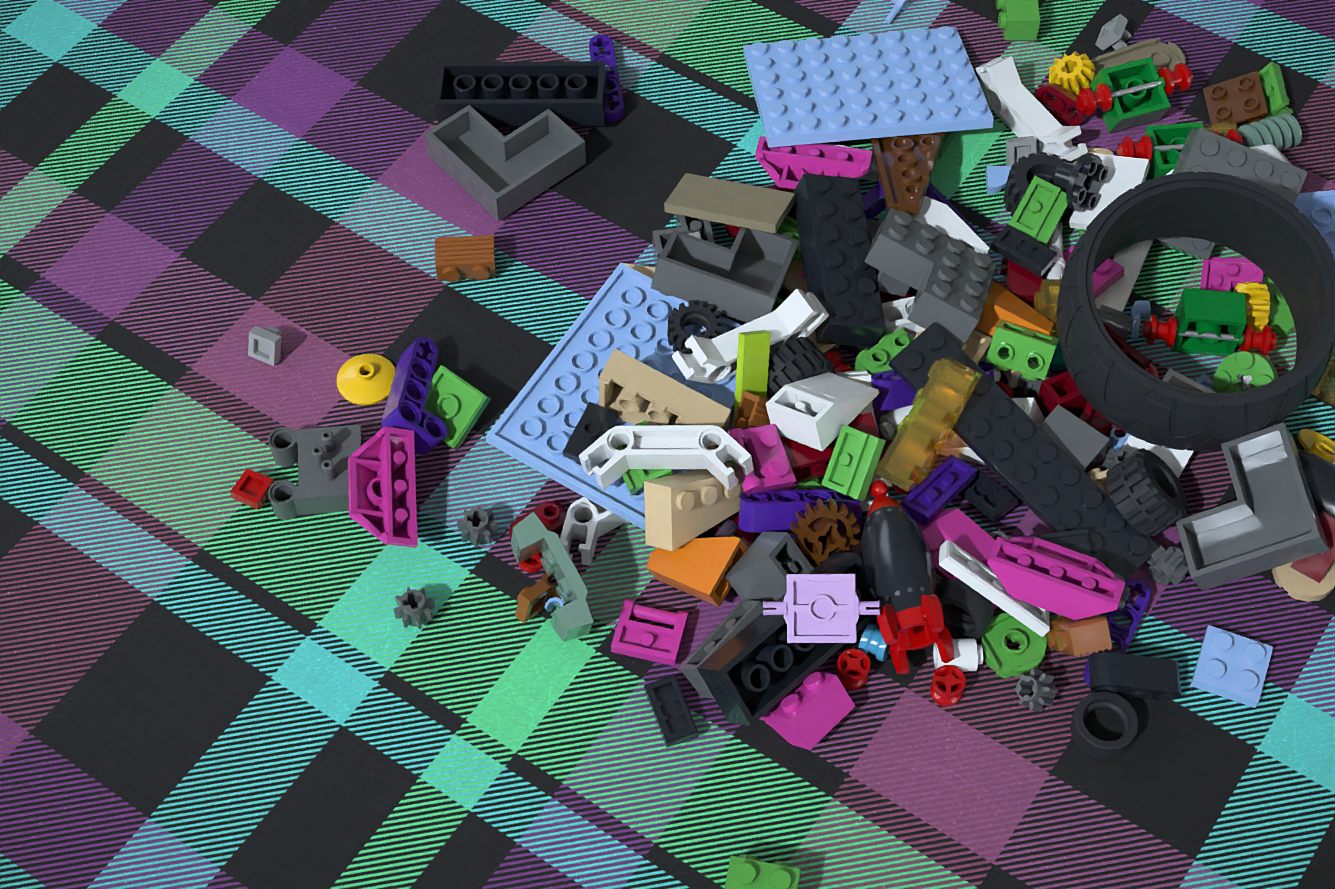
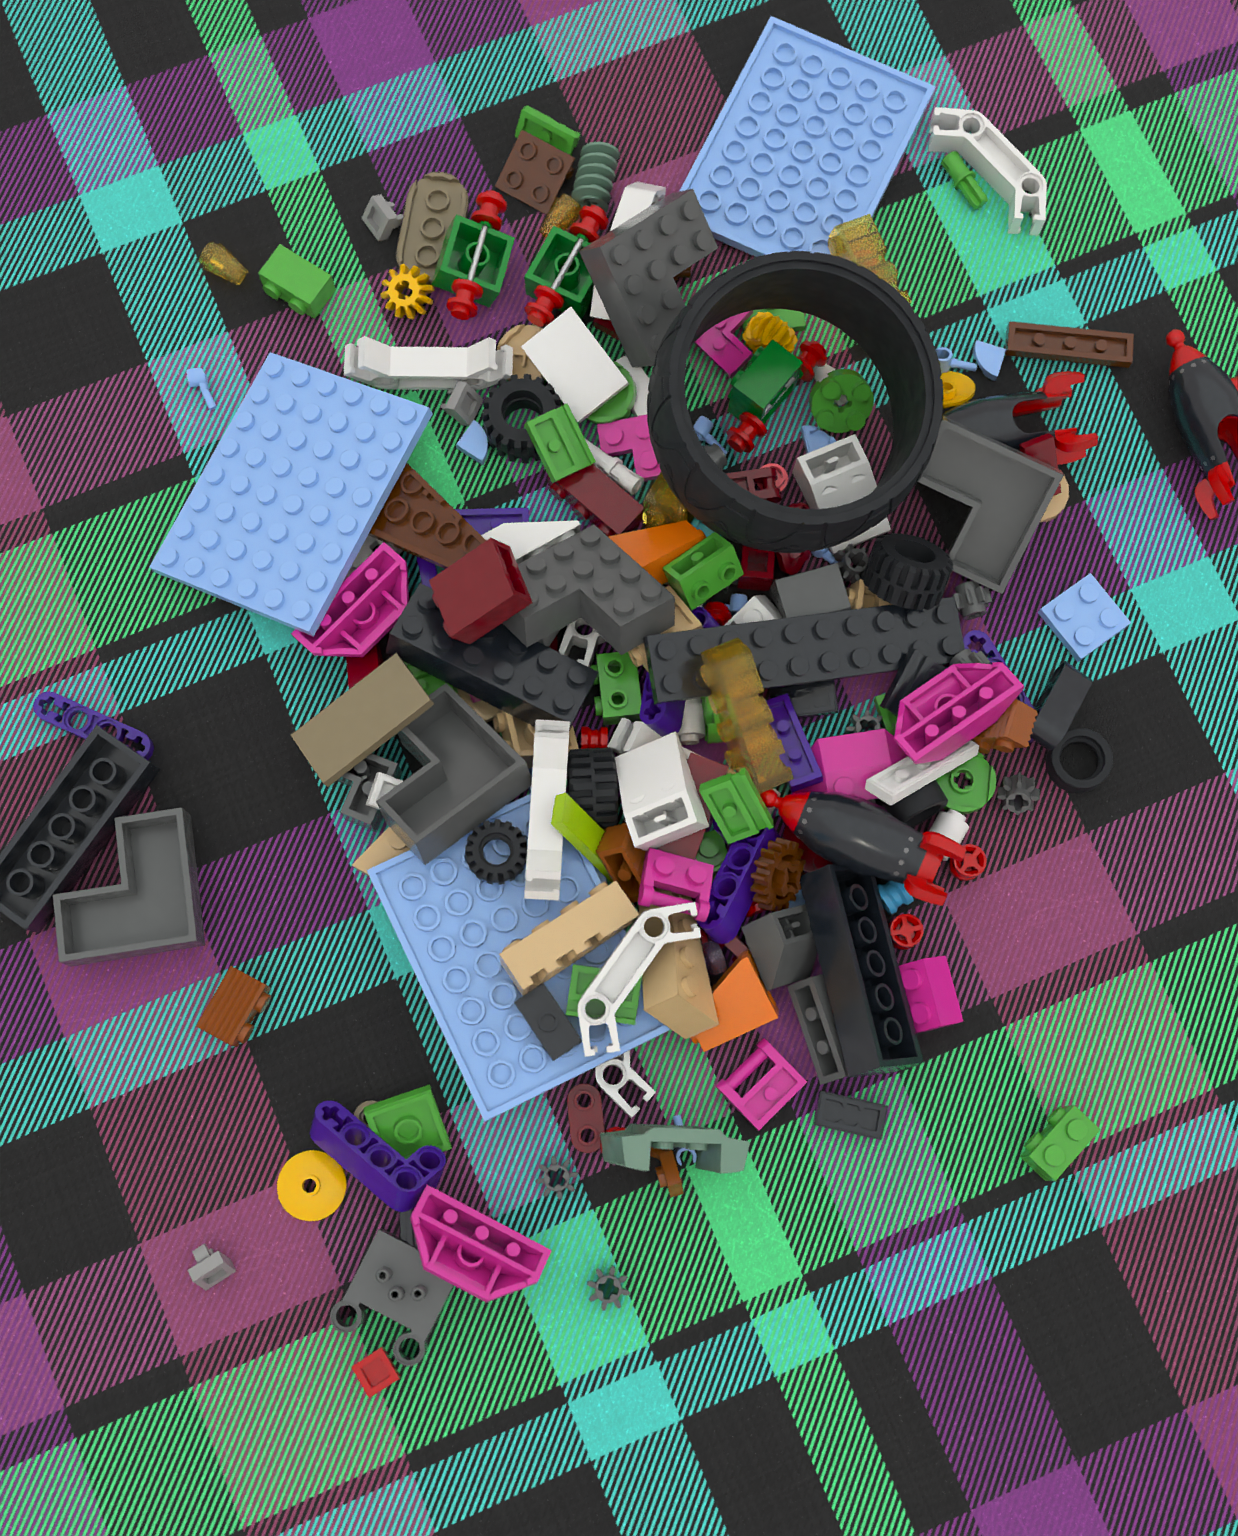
camera: 60 degrees left, 20 degrees up
(821, 608) = (876, 938): lavender plate -> none
(878, 200) = (479, 591): none -> dark red brick
(1023, 250) = (590, 488): black plate -> none
(1062, 106) = (431, 327): dark red plate -> none
(1081, 181) = (556, 386): black plate -> none

